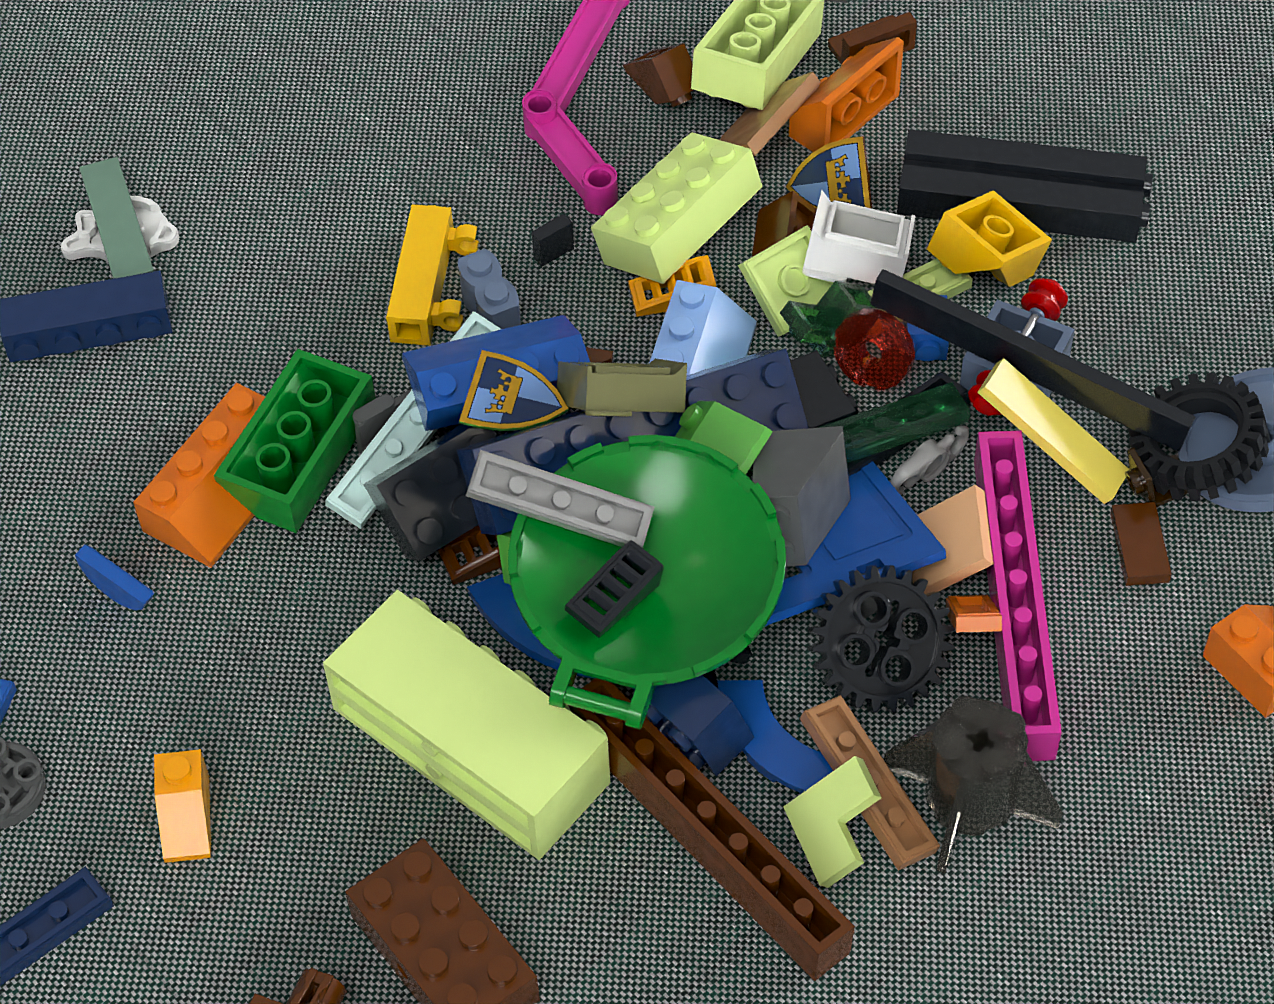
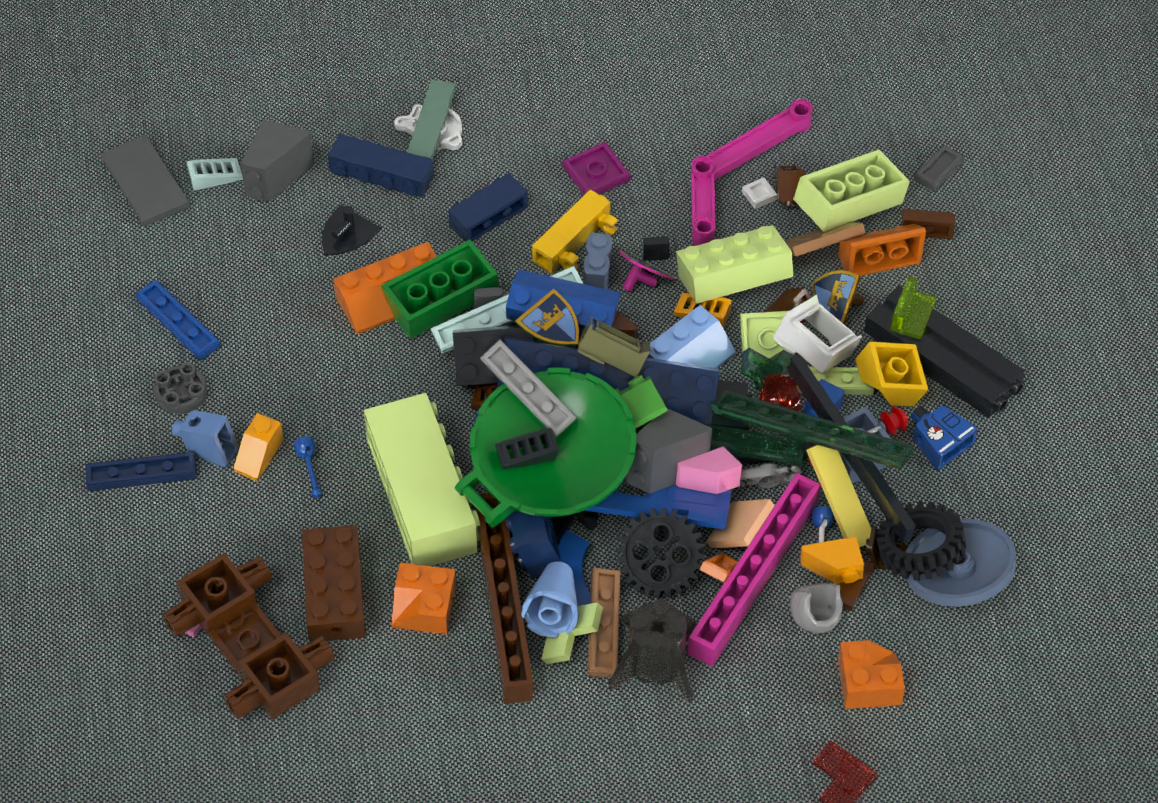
camera: 30 degrees right, 0 degrees up
(94, 431) = (346, 231): none -> black shield
(95, 831) = (208, 437): none -> medium blue torso
(113, 580) = (300, 314): blue tile -> none
(256, 770) = (305, 449): none -> blue hinge
(281, 300) = (488, 208): none -> dark blue brick
(391, 181) = (596, 170): none -> magenta tile
(553, 285) = (637, 274): none -> dark pink shield
(591, 892) = (423, 598): none -> orange slope
(630, 106) = (759, 193): none -> white tile
(790, 790) = (552, 602): none -> light blue cone
(868, 491) = (710, 472): none -> bright pink slope
(954, 150) = (912, 310): none -> clear neon green panel
(973, 358) = (813, 429): none -> clear green plate
(1043, 480) = (822, 518): none -> blue hinge
(1104, 290) = (942, 434): none -> blue torso
(1111, 522) = (834, 560): none -> light orange slope
(1137, 598) = (816, 607): none -> light grey piece

